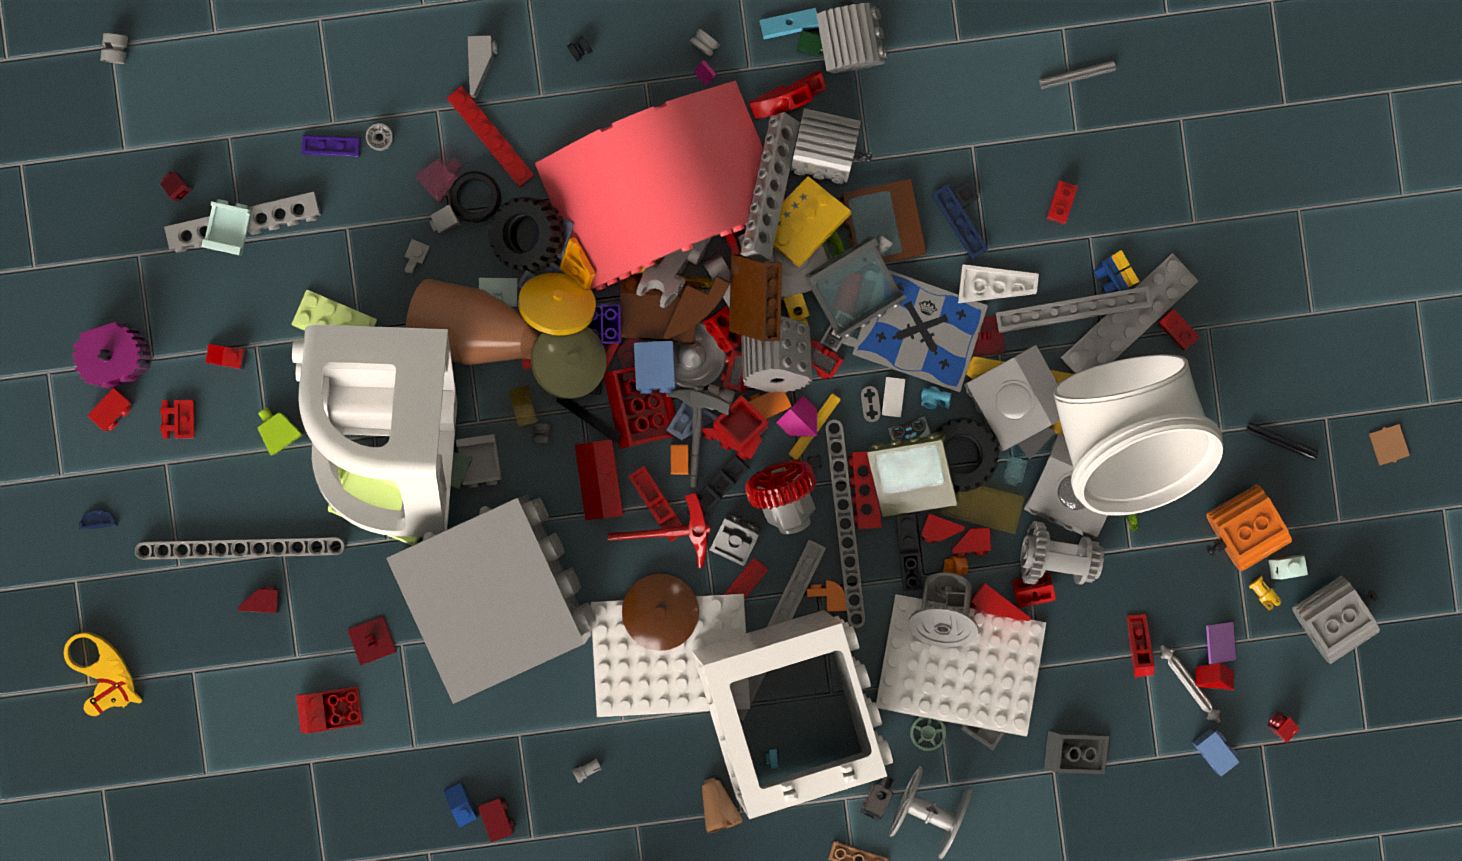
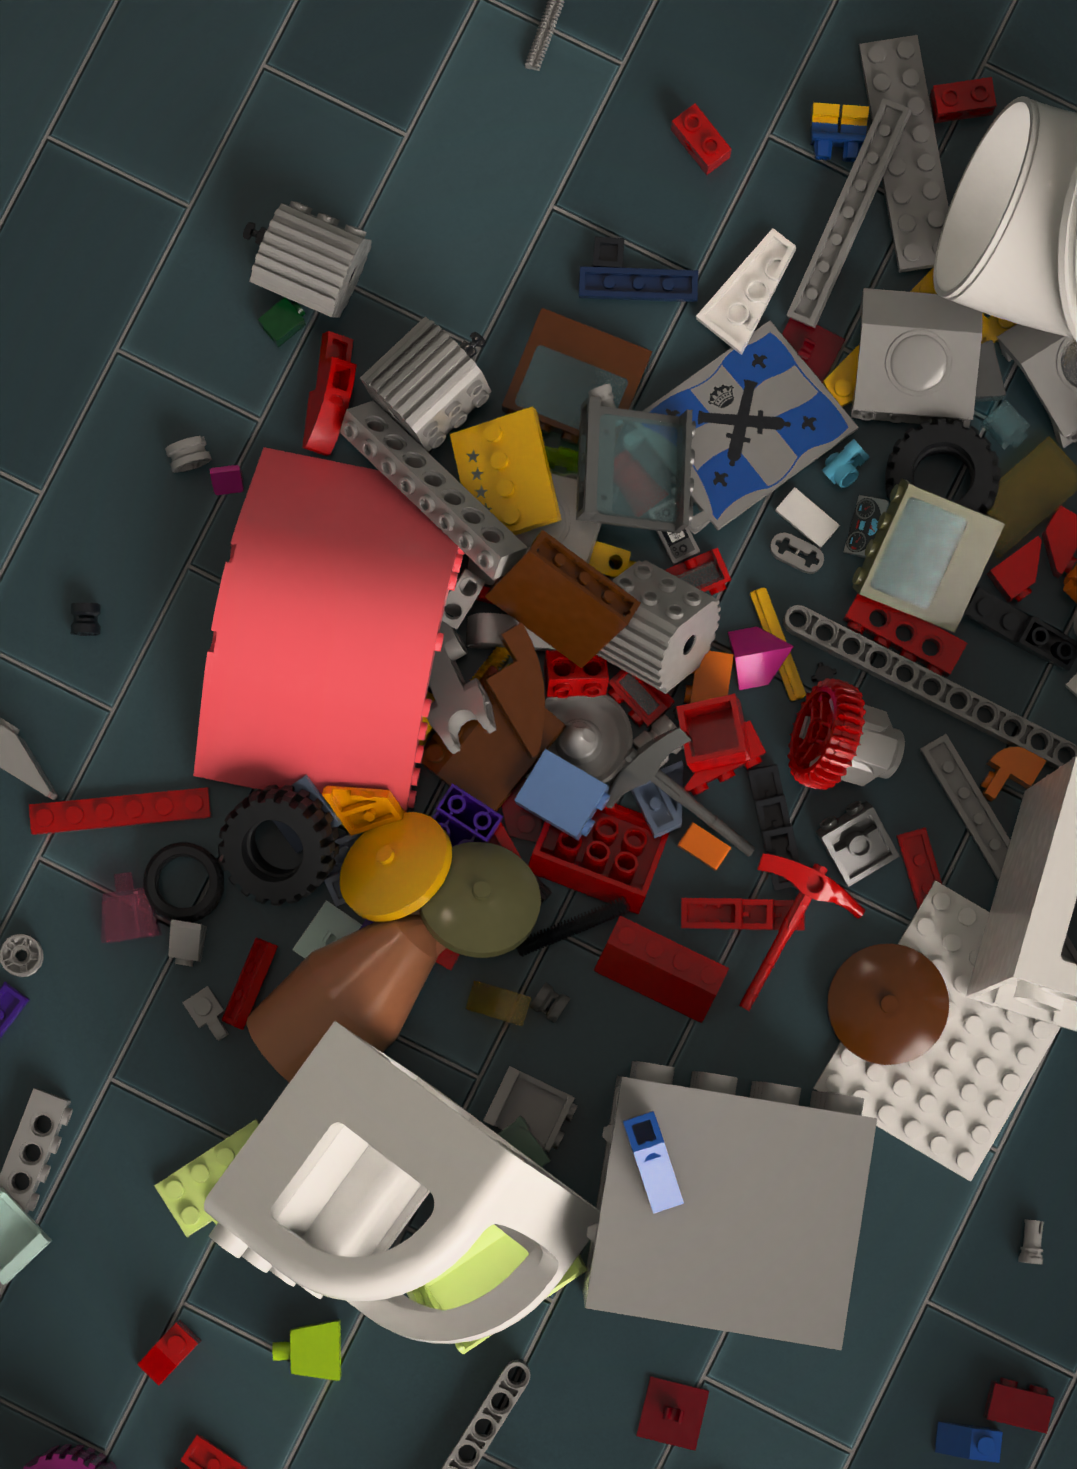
camera: 55 degrees left, 5 degrees down
(445, 267) = (249, 983): none -> red tile
(483, 542) = (653, 1161): none -> slope
(729, 242) = (460, 601): none -> light grey leg
(789, 23) = (238, 330): medium azure tile -> none

